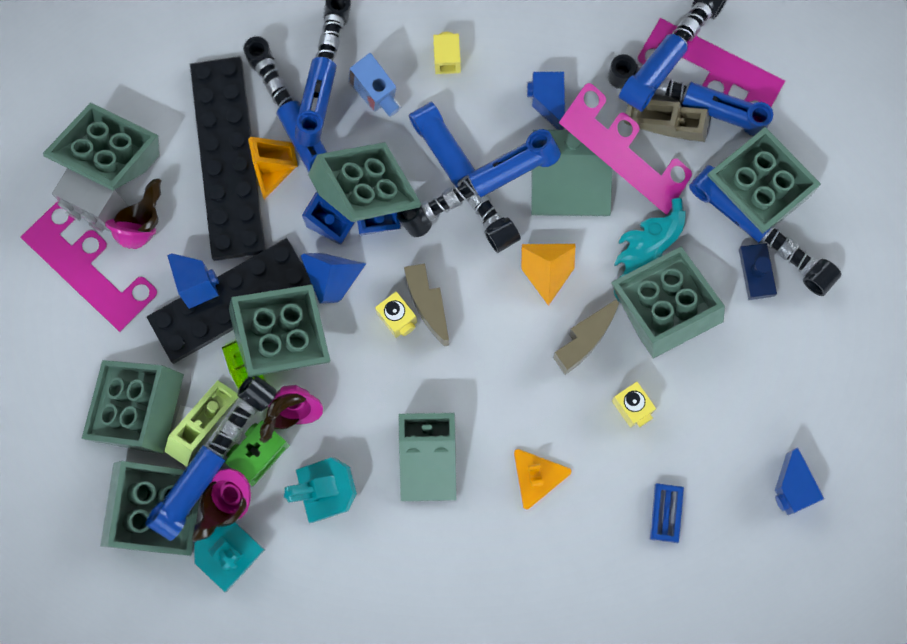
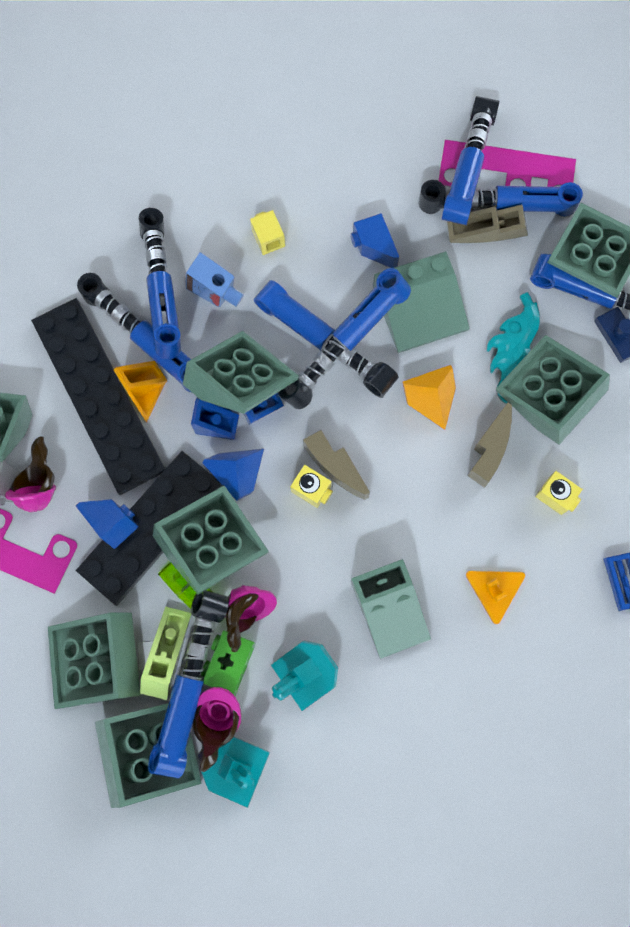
camera: 20 degrees left, 0 degrees up
(616, 153) = (454, 267): dark pink piece -> none

